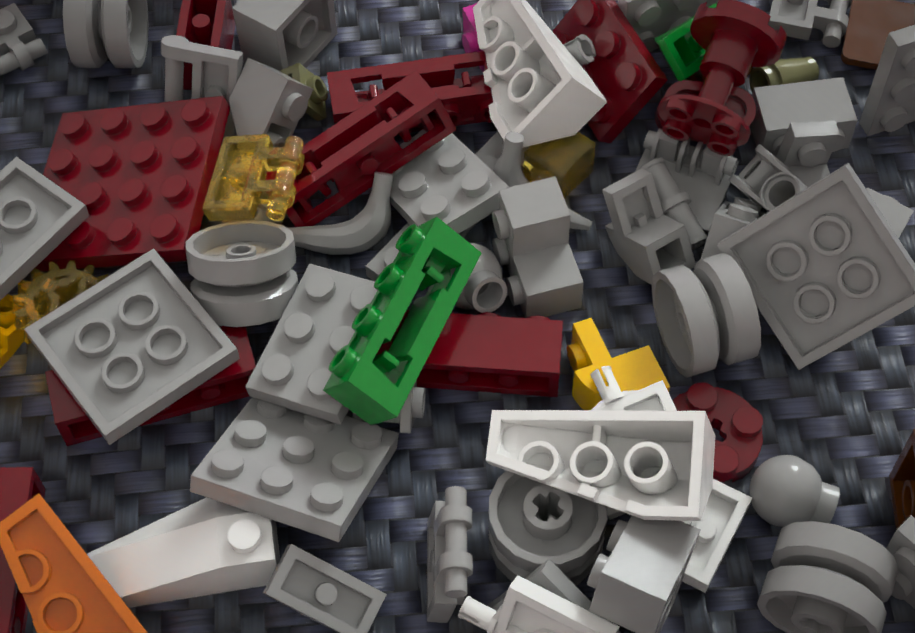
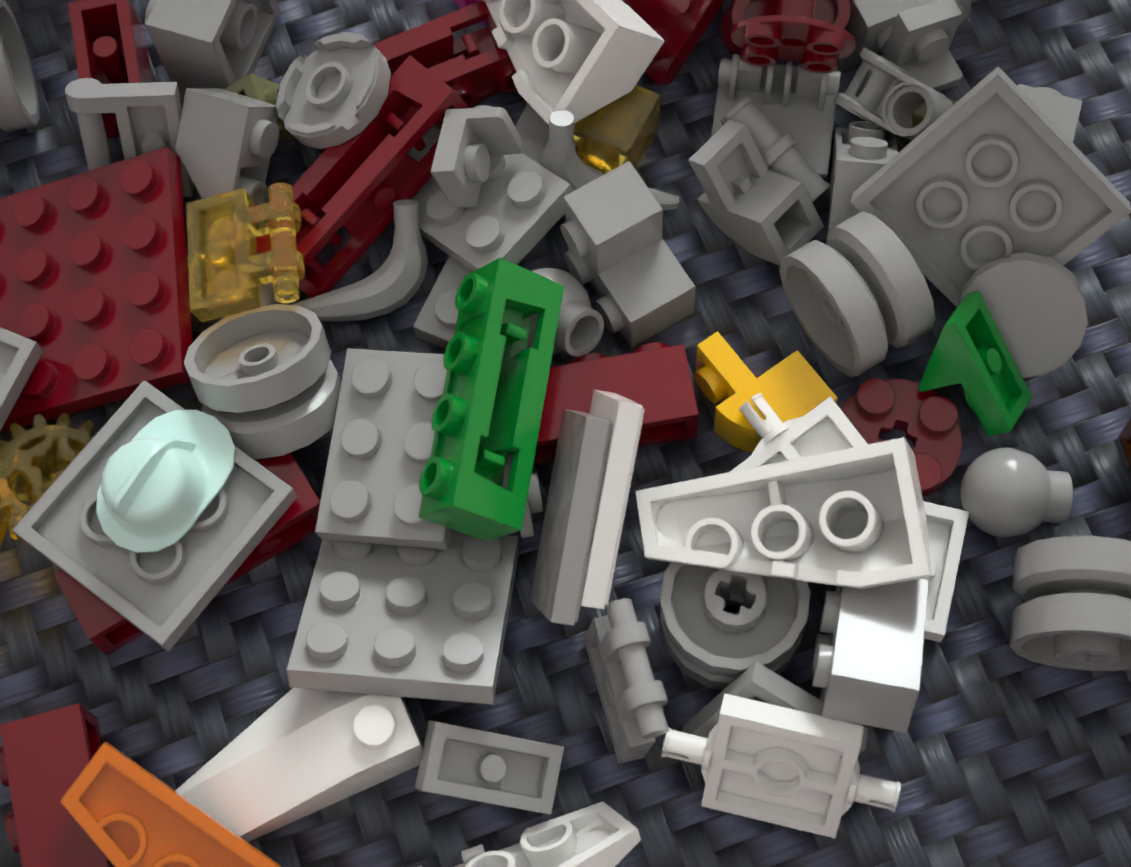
camera: 10 degrees left, 10 degrees up
(143, 319) = (164, 480): none -> light aqua piece
(354, 85) = (333, 90): none -> light grey tile
(437, 144) = (465, 148): none -> light grey bracket
(439, 416) = (570, 516): none -> light grey tile
(465, 410) = (623, 444): none -> white tile
(786, 379) = (978, 358): none -> green slope
(831, 362) = (1034, 308): none -> light grey tile

